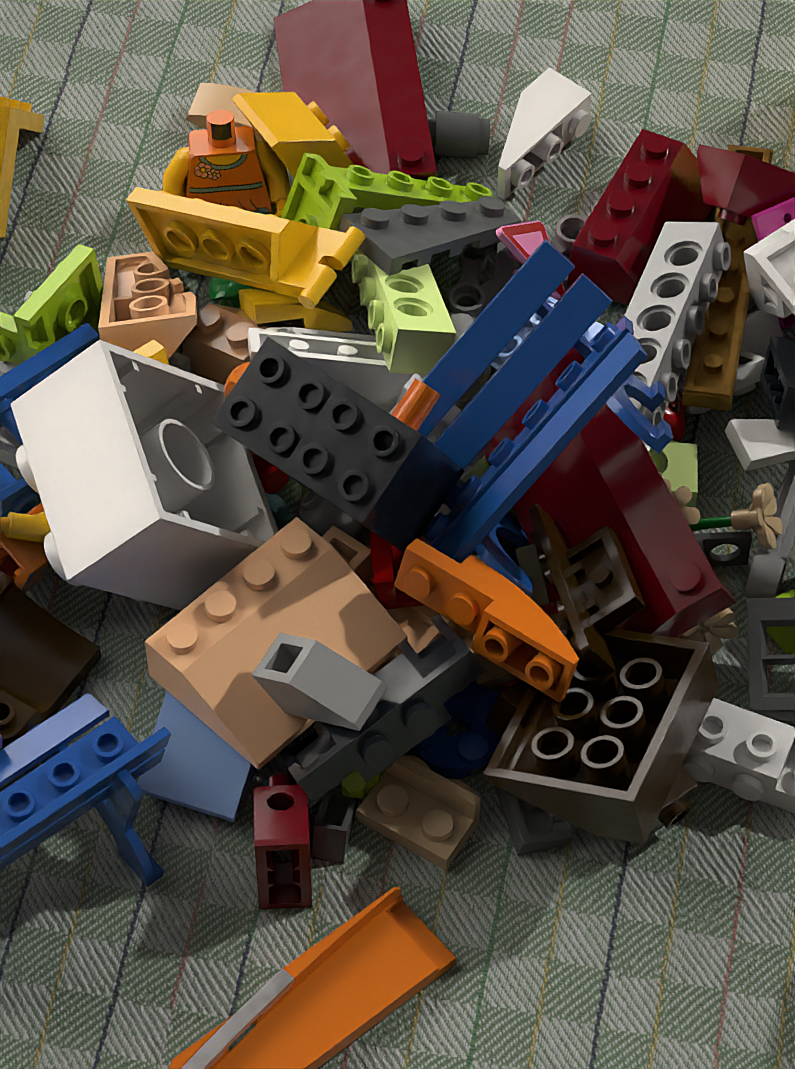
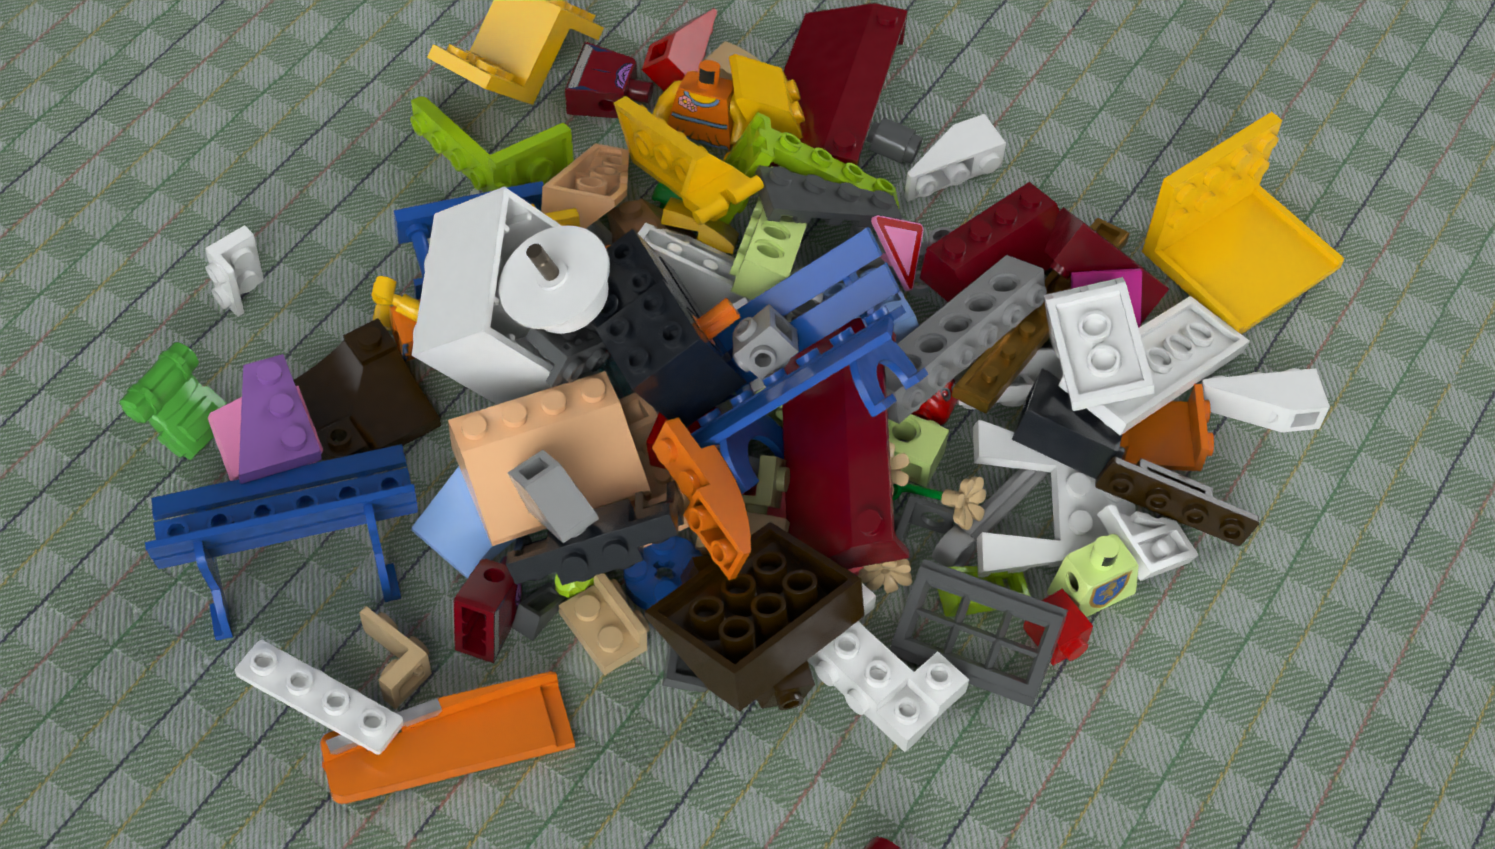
camera: 20 degrees right, 0 degrees up
(85, 182) = (602, 79): none -> dark red torso
(146, 1020) = (319, 697): none -> white bracket
(155, 113) = (679, 50): none -> slope
(214, 426) = (556, 280): none -> white piece
(216, 931) = (400, 676): none -> tan bracket
(245, 497) = (570, 352): none -> dark grey bracket
(473, 416) = (764, 343): none -> light grey brick
(592, 583) = (795, 502): dark brown bracket -> none

